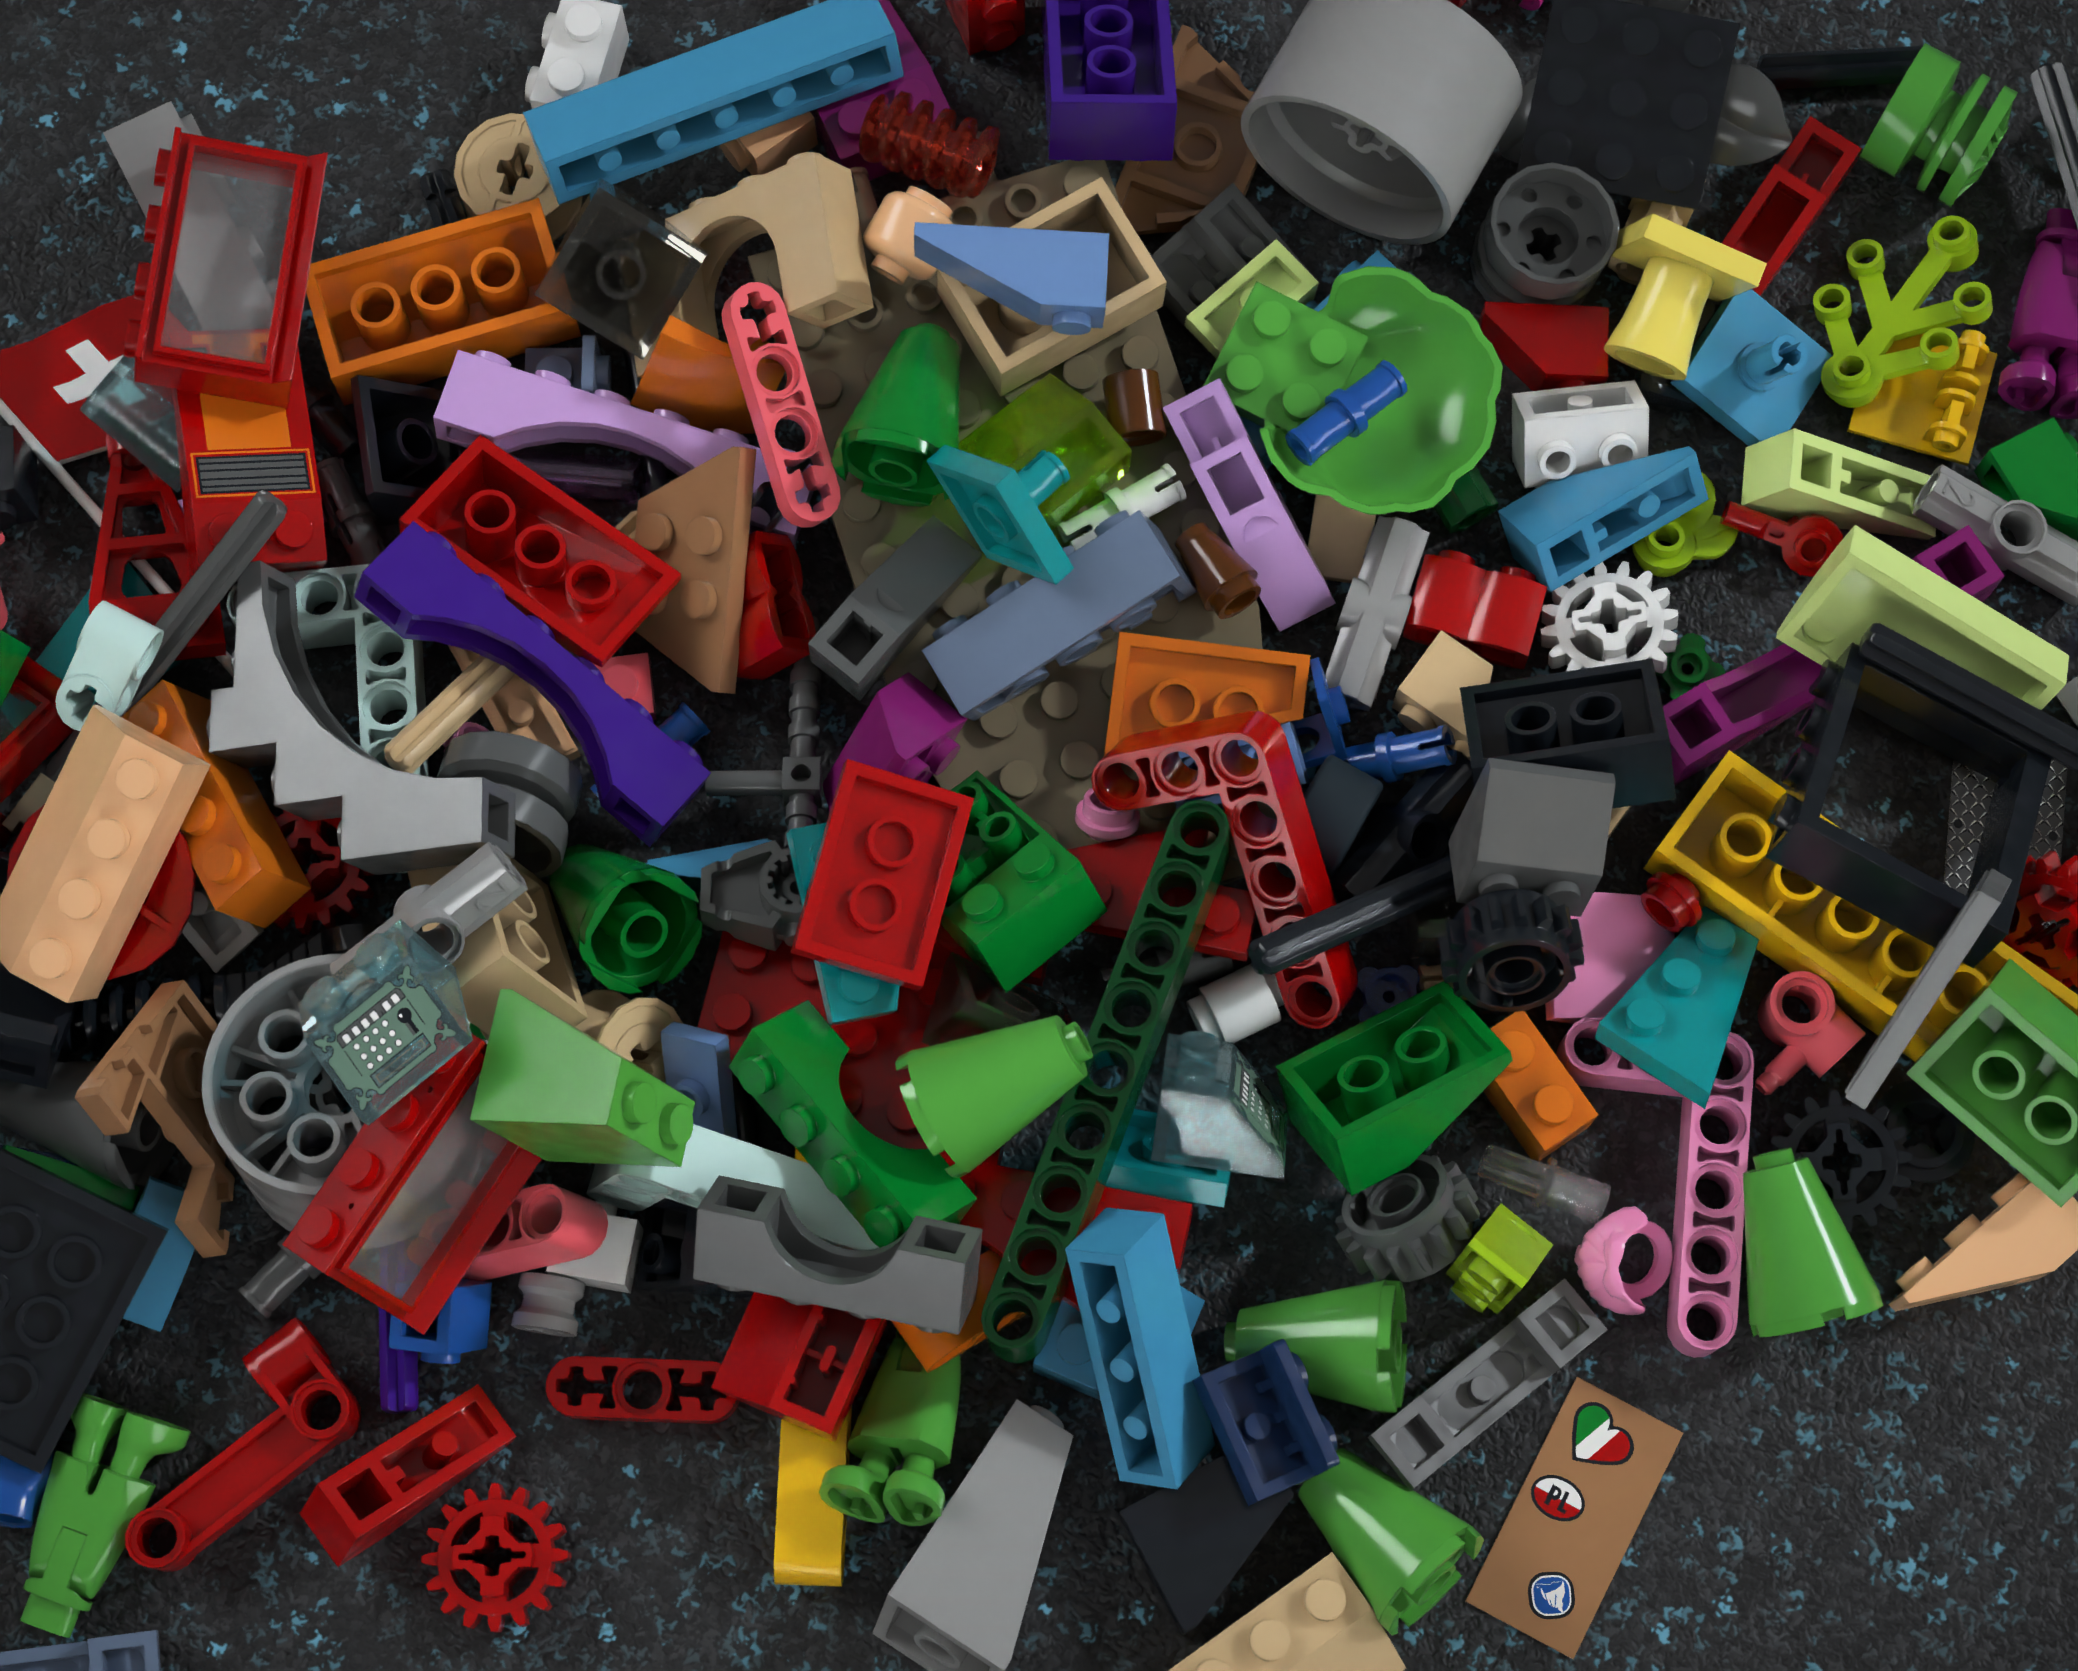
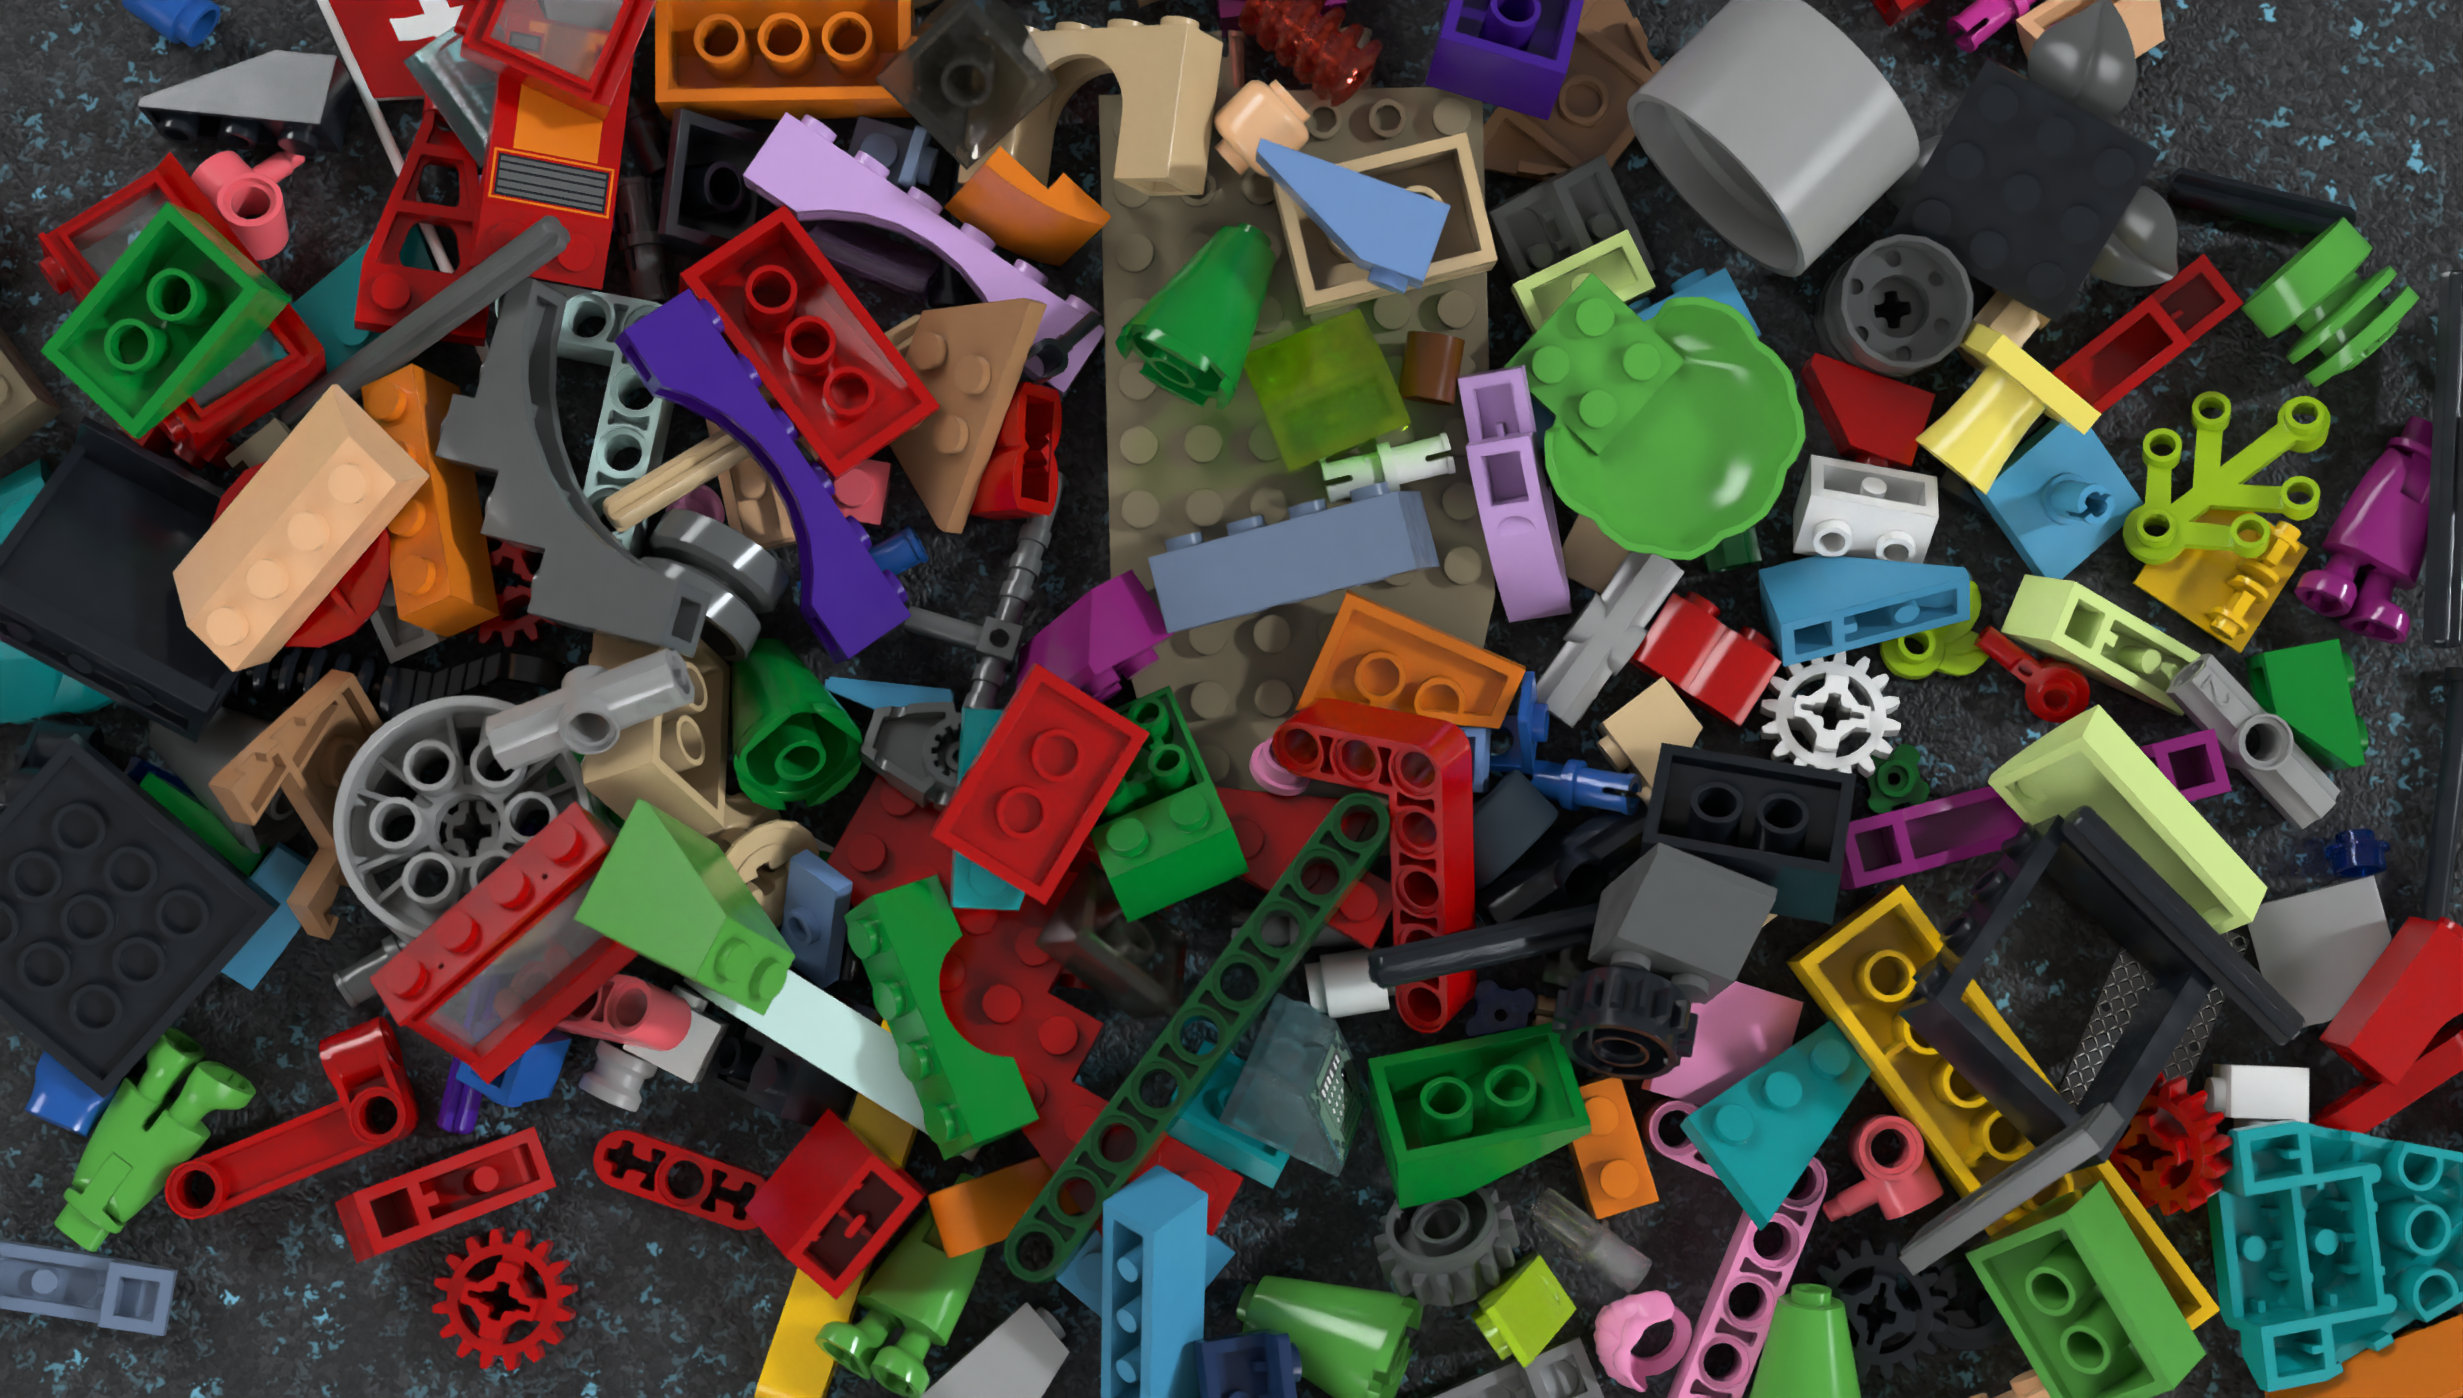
camera: 15 degrees right, 10 degrees up
(112, 659) = (360, 339): light aqua piece -> none
(385, 1020) = (521, 799): slope -> none
(759, 1245) = (818, 1107): dark grey arch -> none
(770, 406) = (1071, 269): coral beam -> none
(891, 607) = (1137, 499): dark grey slope -> none
(990, 1086) = (1078, 1021): bright green cone -> none
(1004, 510) = (1266, 449): teal tile -> none
(1217, 571) = (1461, 556): reddish brown cone -> none
(1346, 413) = (1636, 438): blue pin -> none
(1672, 901) = (1799, 1011): red plate -> none

